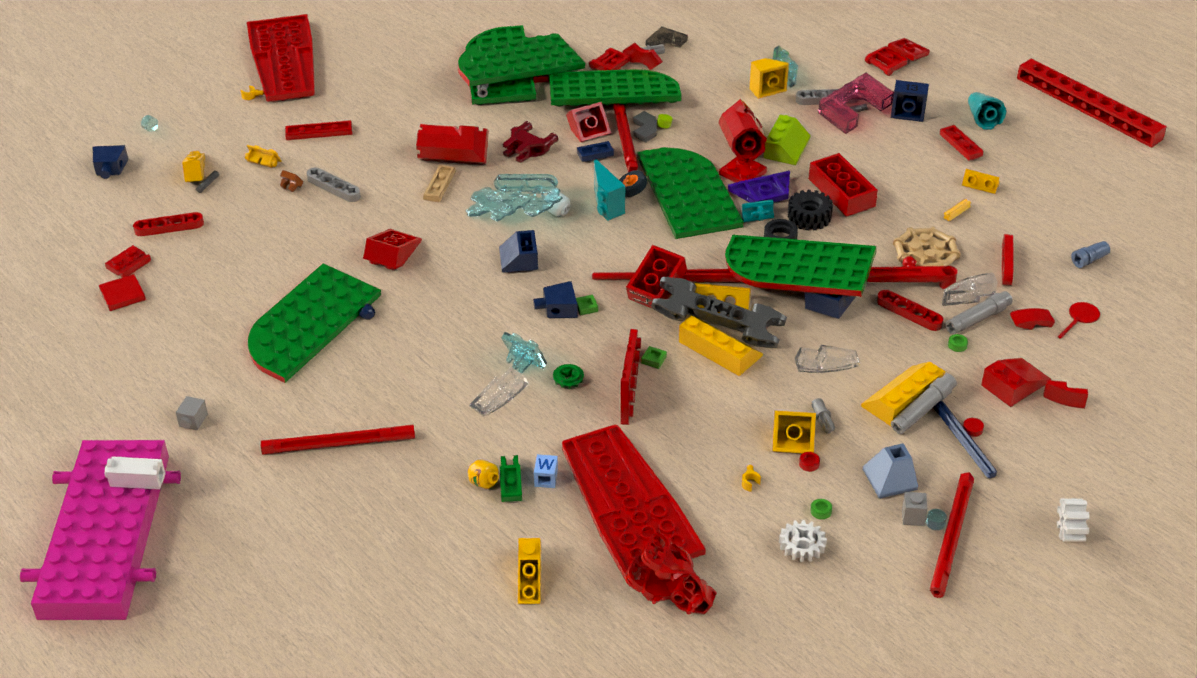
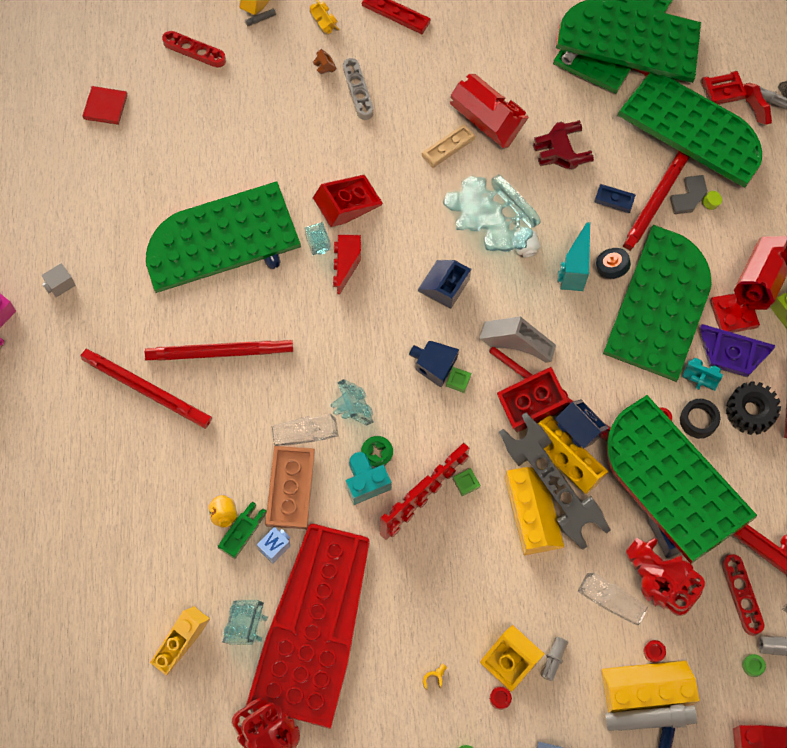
camera: 35 degrees right, 25 degrees up
(128, 261) = (133, 72): red plate -> none
(375, 385) = (218, 350): none -> red piece
(391, 279) = (317, 238): none -> clear light blue brick
(425, 277) = (348, 258): none -> red slope
(522, 431) = (290, 487): none -> nougat plate
(572, 525) = (244, 622): none -> clear light blue plate
(579, 393) = (366, 480): none -> teal brick
(588, 122) = (637, 158): red slope -> none
(603, 251) = (518, 335): none -> light grey arch
(705, 268) = (581, 424): none -> dark blue brick
(851, 321) = (672, 574): none -> red animal
(885, 373) = (654, 651): none -> red tile

